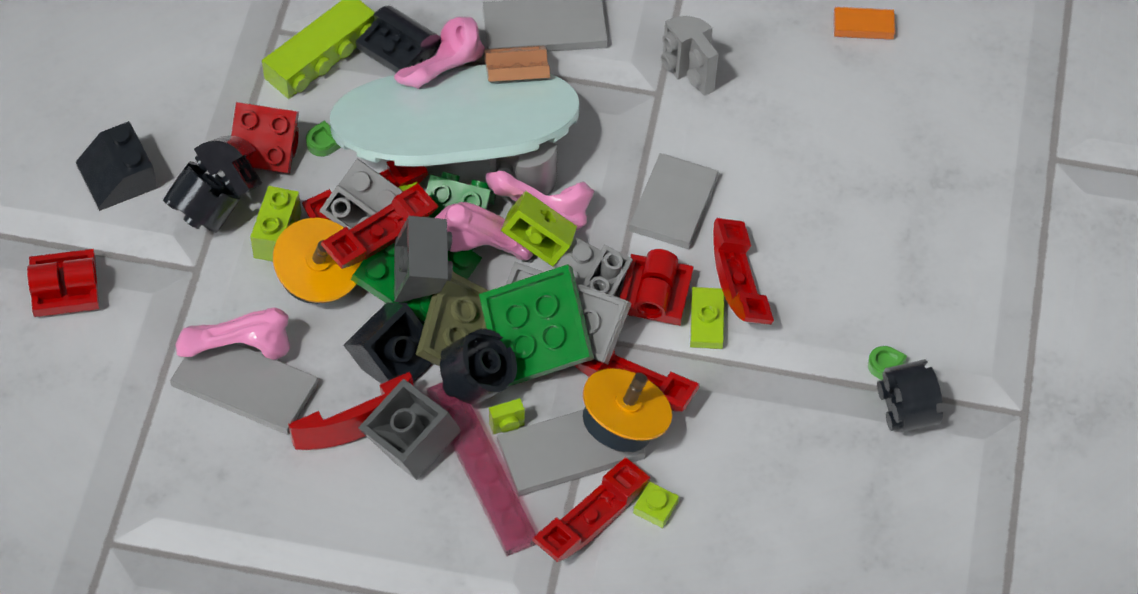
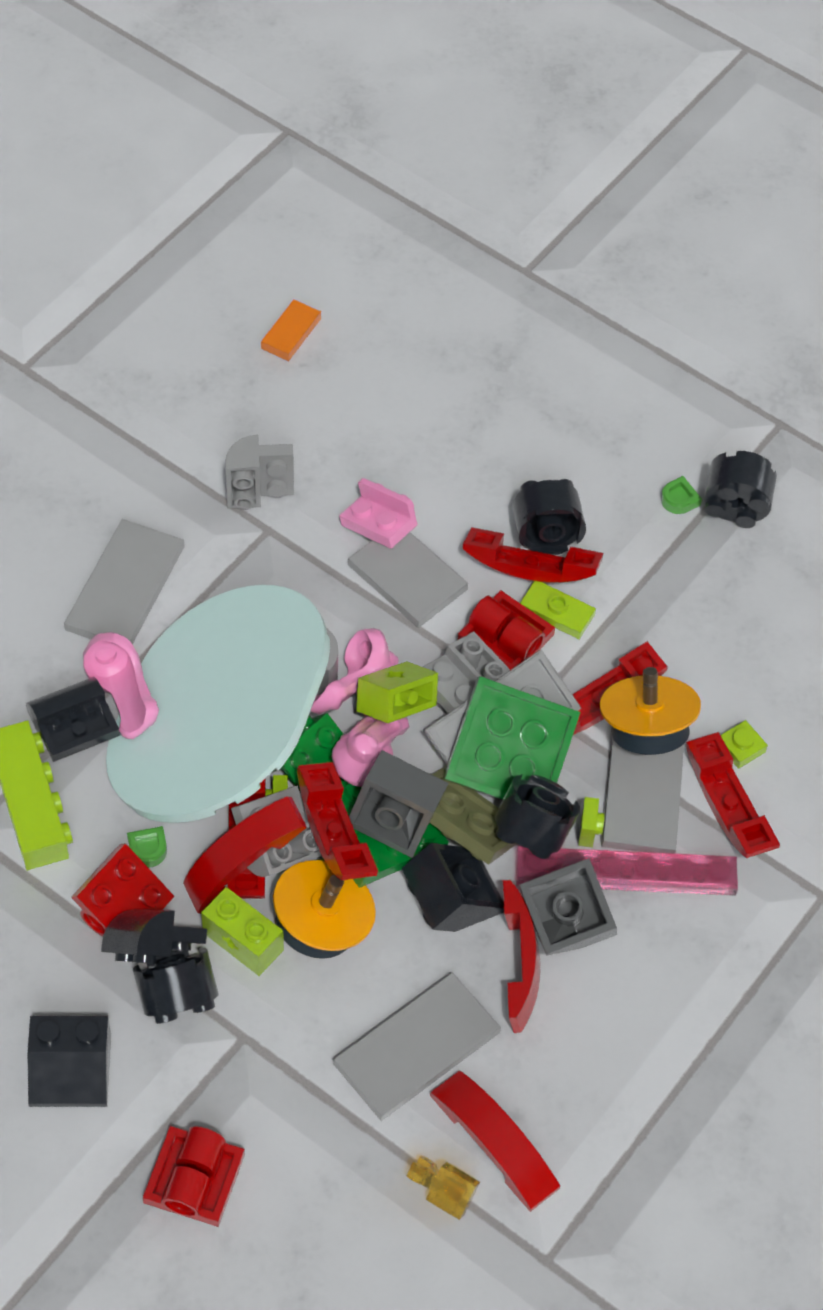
camera: 65 degrees left, 0 degrees up
(130, 447) = (449, 1187): none -> clear yellow plate
(187, 465) = (498, 1137): none -> red slope
(258, 329) = (374, 1002): bright pink hair -> none
(344, 182) = (240, 847): none -> red slope
(517, 63) = (172, 624): nougat slope -> none
(712, 154) = (380, 514): none -> bright pink bracket
(785, 267) = (549, 516): none -> black brick

